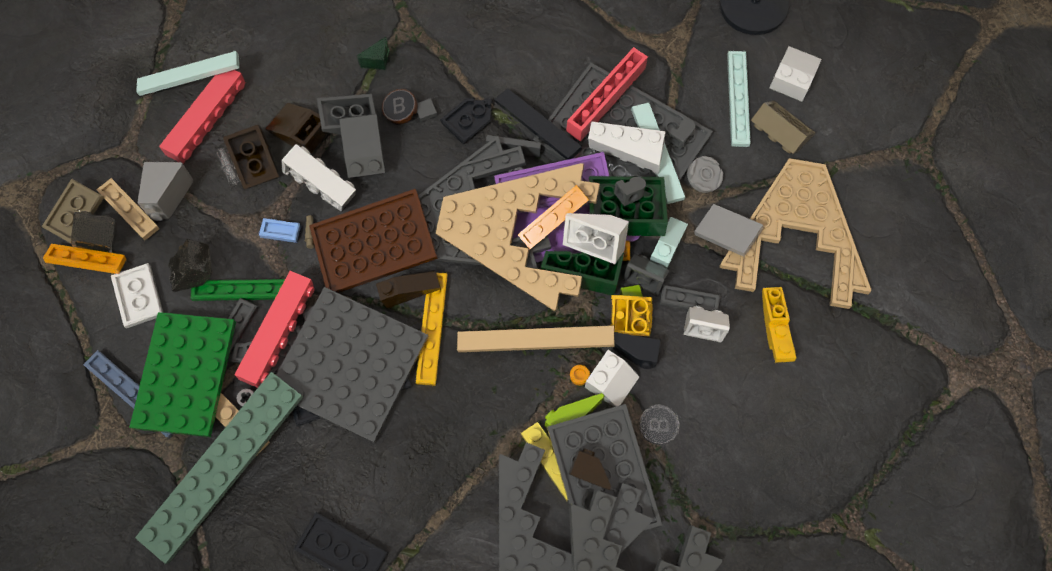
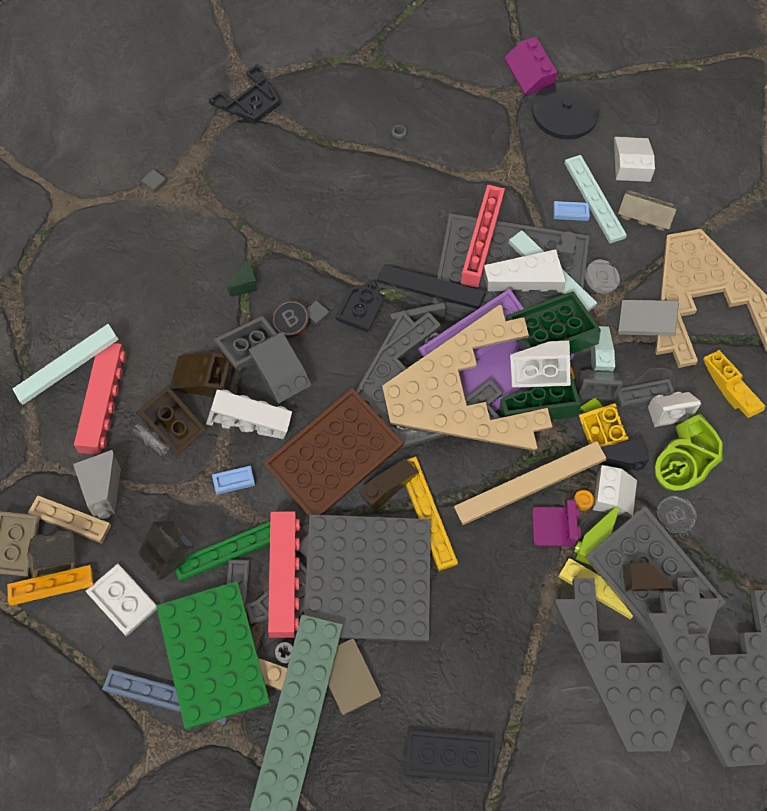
camera: 25 degrees left, 5 degrees down
(290, 446) = (351, 680): none -> dark tan tile
(308, 236) = (265, 473): dark tan animal -> none
(539, 387) = (556, 525): none -> magenta bracket
(553, 217) = (496, 363): light orange plate -> none
(630, 191) = (553, 314): dark grey leg -> none
(697, 376) = (689, 457): none -> lime piece
(709, 101) = (571, 210): none -> light blue tile

